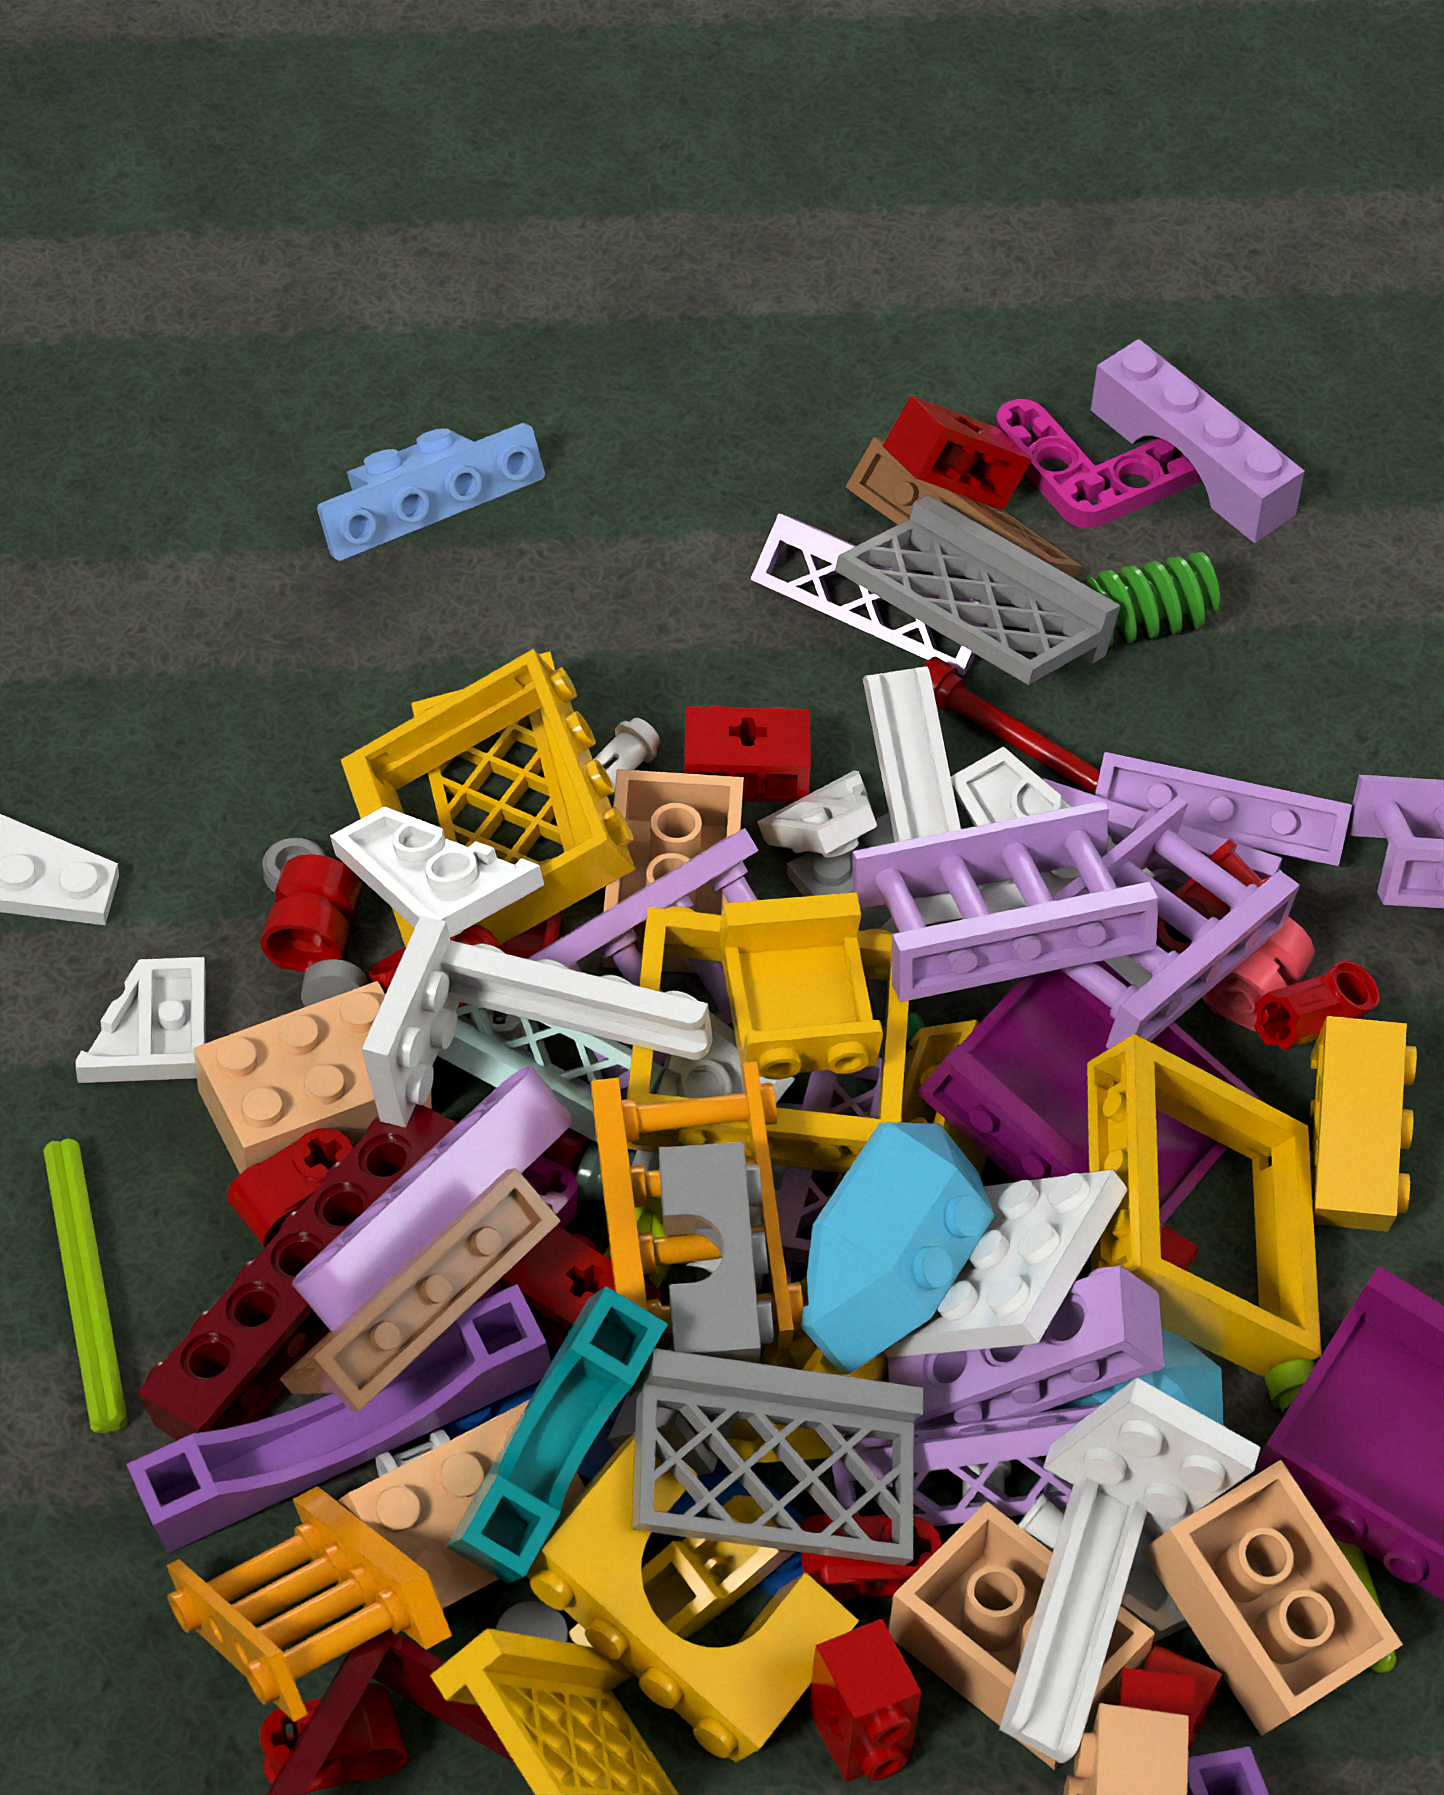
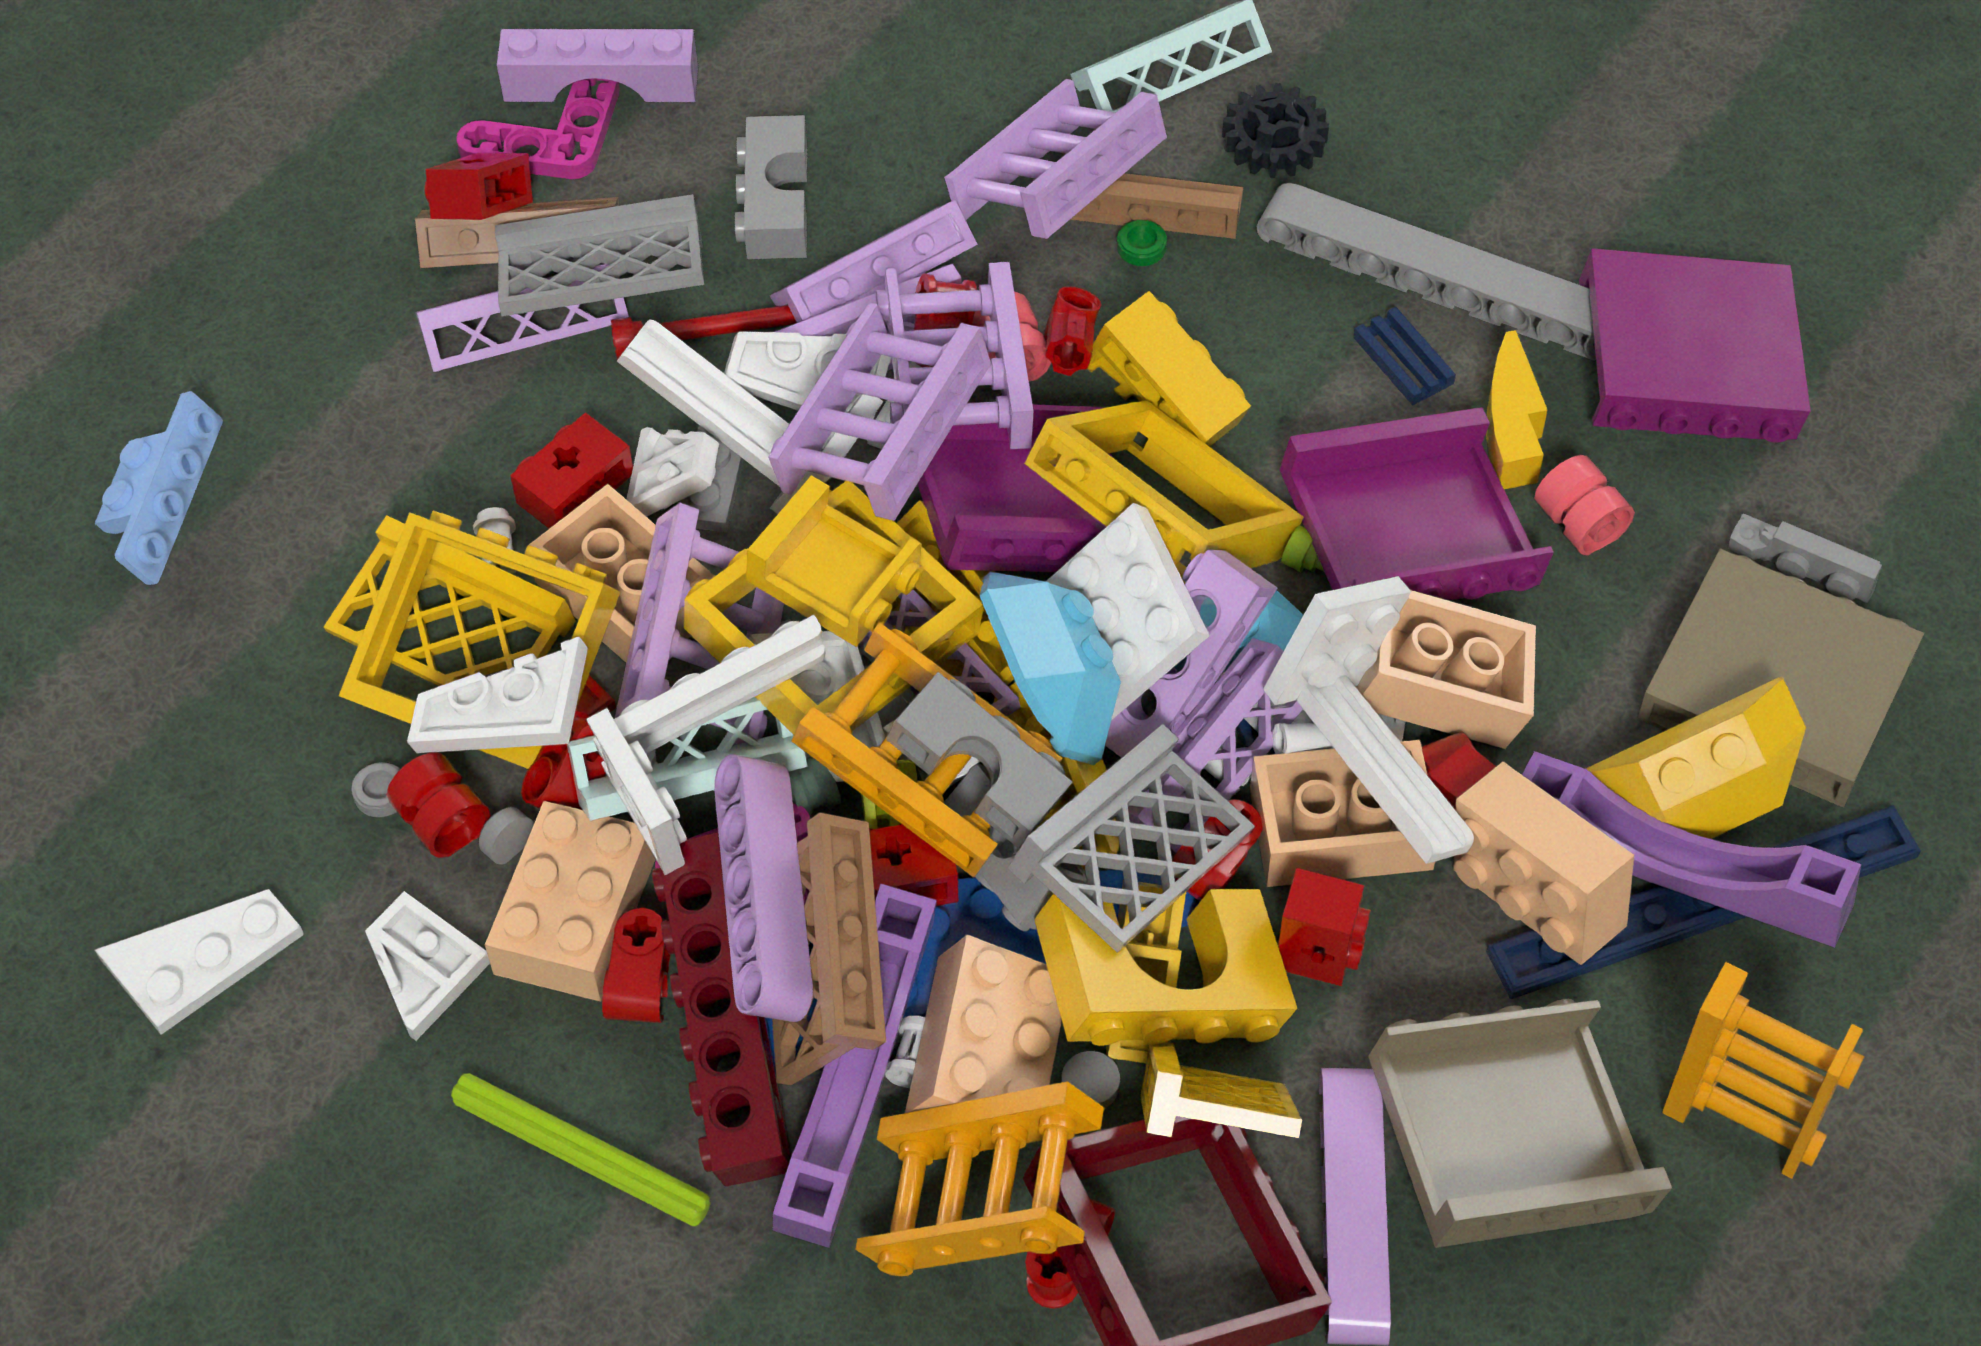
camera: 45 degrees left, 5 degrees up
(553, 1434) = (998, 882): teal arch -> none
(1159, 594) = (696, 168): bright green piece -> none
(1248, 636) = (772, 217): none -> light grey arch

